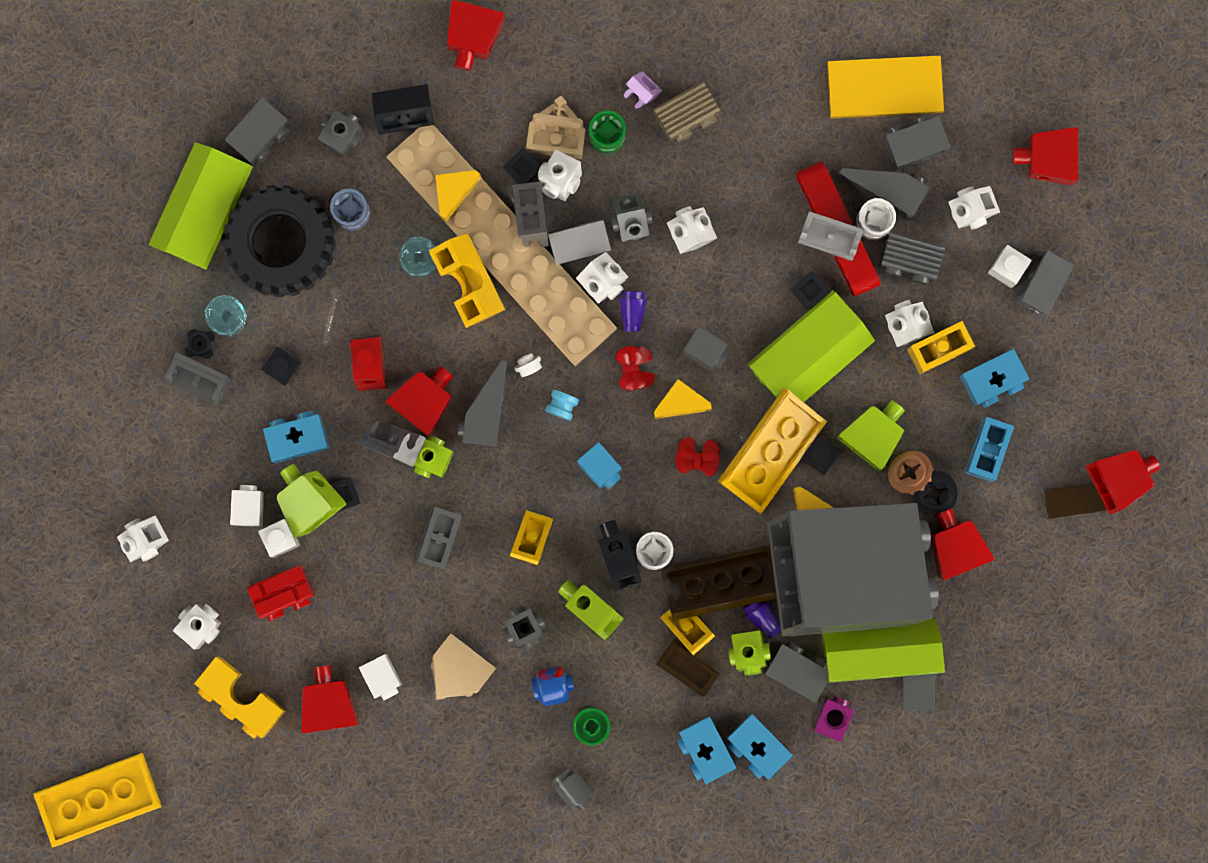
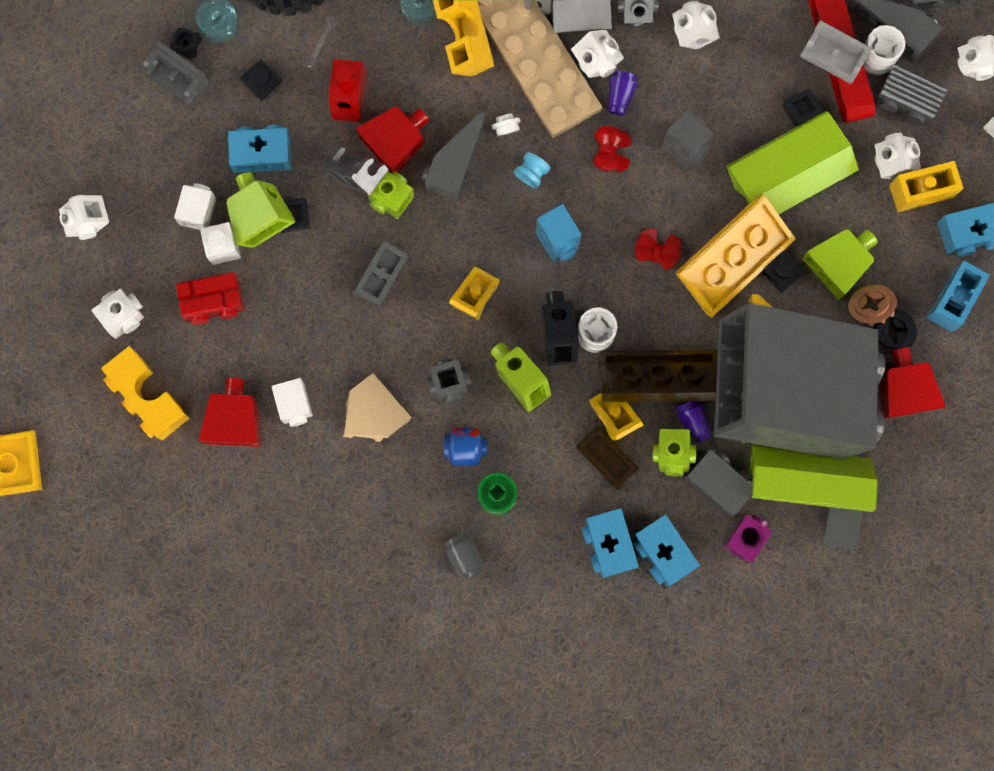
camera: 10 degrees right, 5 degrees down
(681, 401) = (653, 190): yellow slope -> none

